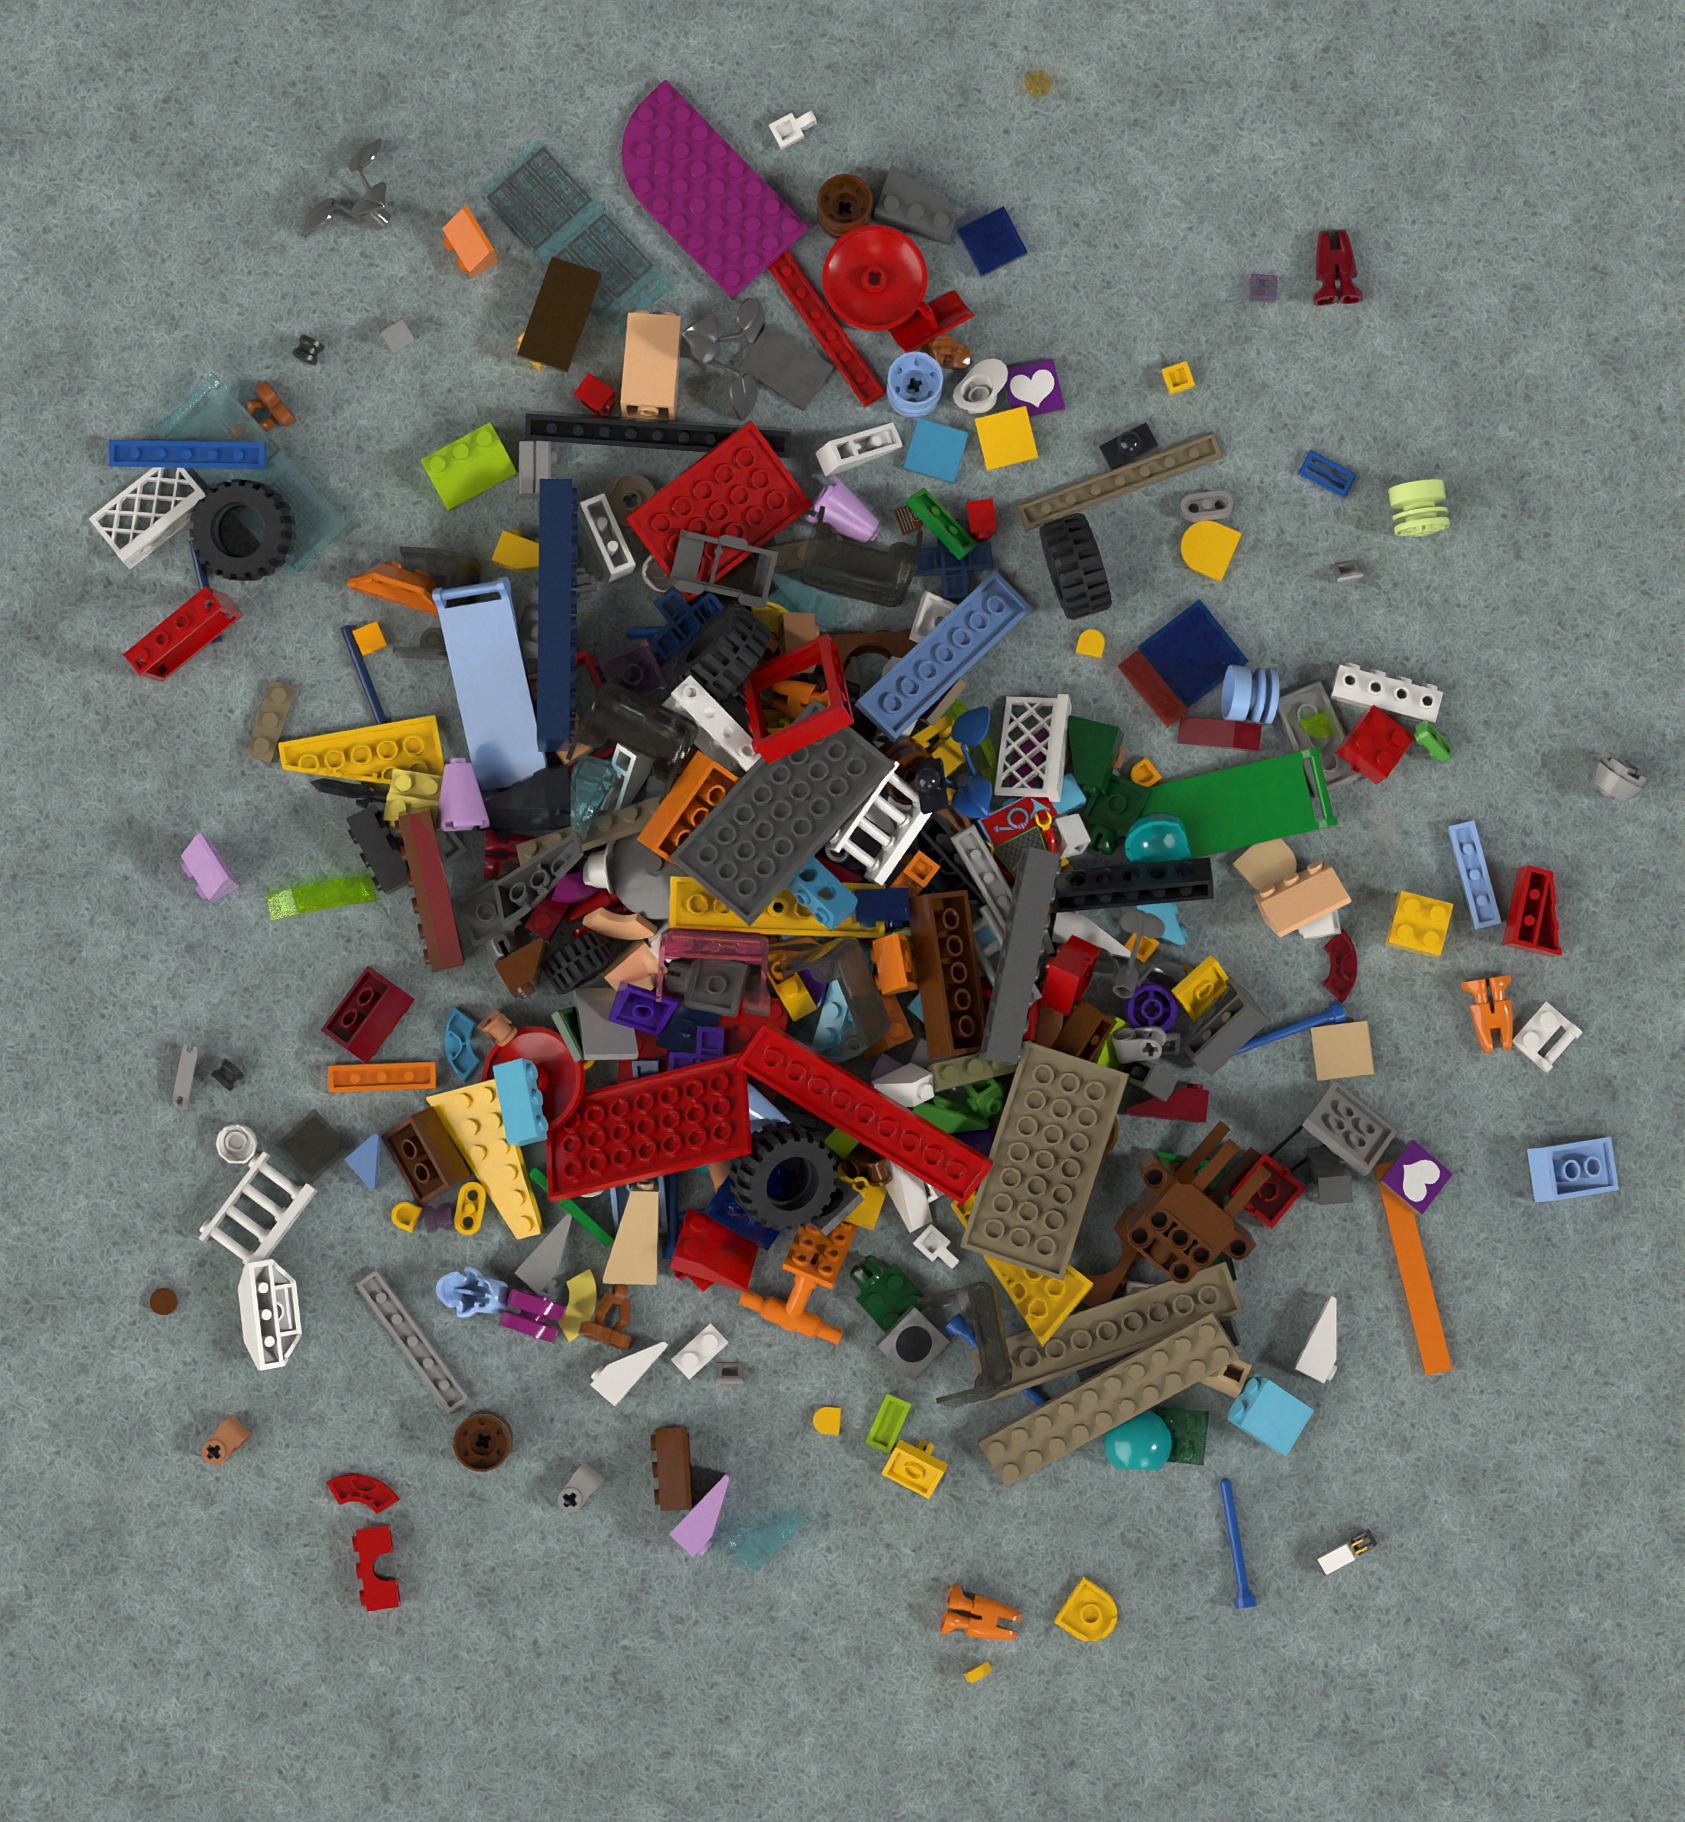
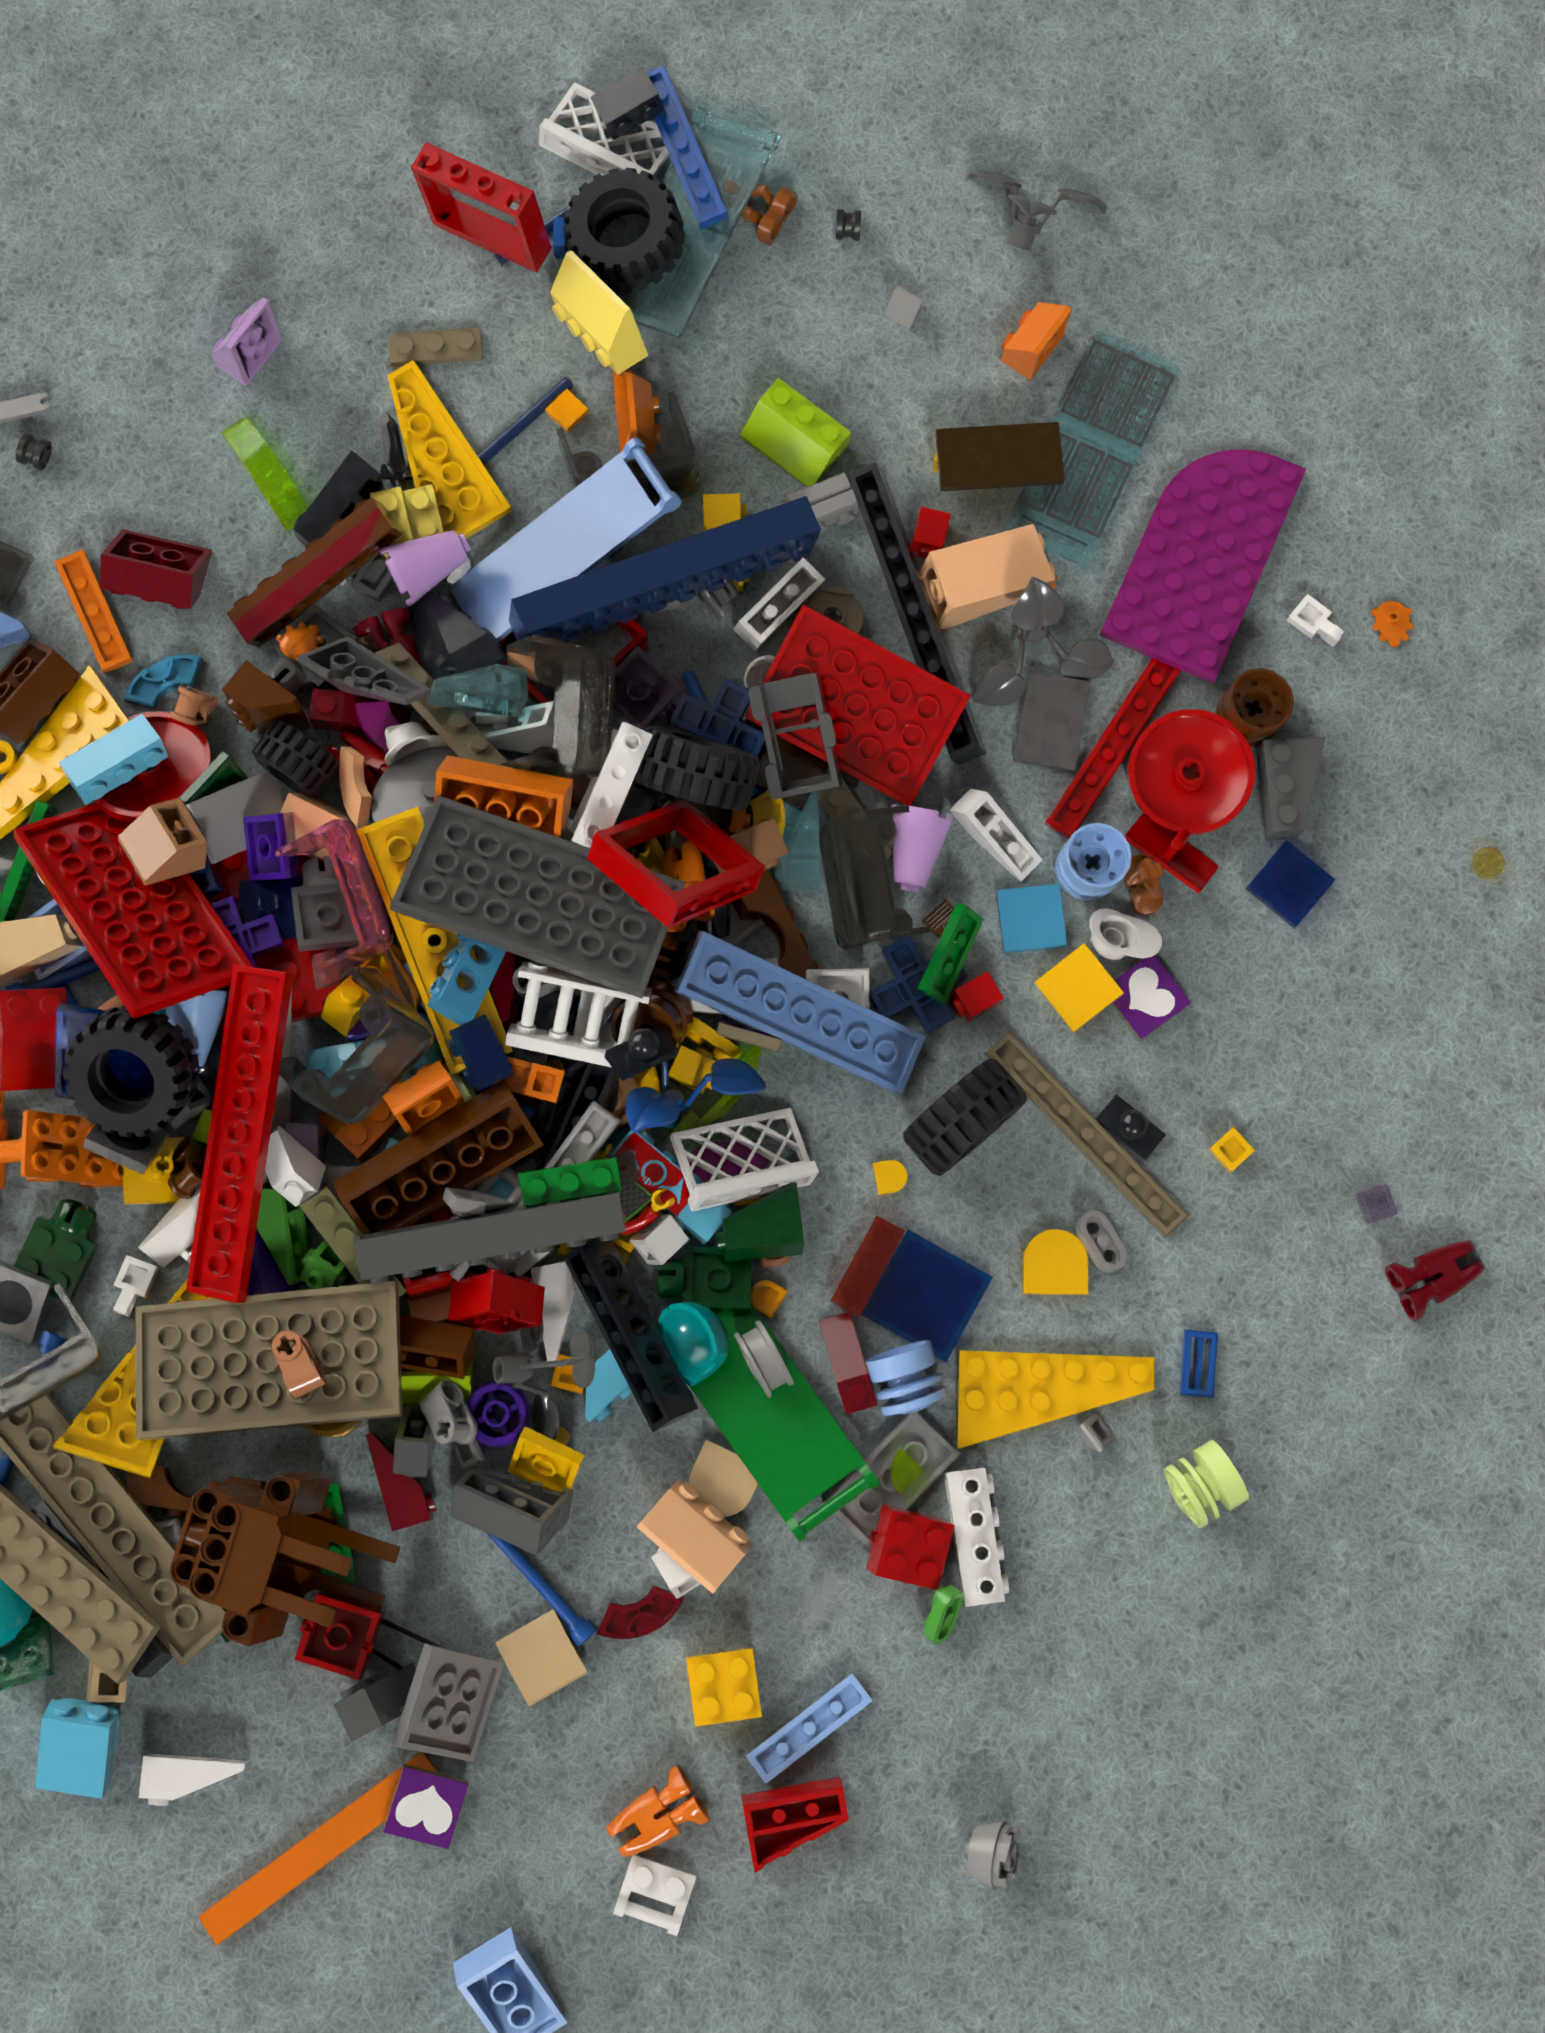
camera: 60 degrees right, 5 degrees down
(135, 482) = (628, 103): none -> brick
(222, 584) = (559, 240): none -> blue tile
(311, 581) = (596, 315): none -> light yellow slope
(480, 923) = (299, 640): none -> orange piece
(608, 1086) = (164, 842): none -> medium nougat slope
(817, 69) = (1392, 621): none -> orange piece
(989, 960) = (467, 1202): none -> light grey plate
(1003, 880) = (570, 1181): none -> green plate
(1007, 832) = (627, 1160): none -> clear smoke plate
(1065, 1135) = (300, 1369): none -> nougat piece
(1194, 793) = (763, 1359): none -> light grey wheel
(1292, 614) = (1022, 1390): none -> yellow wing

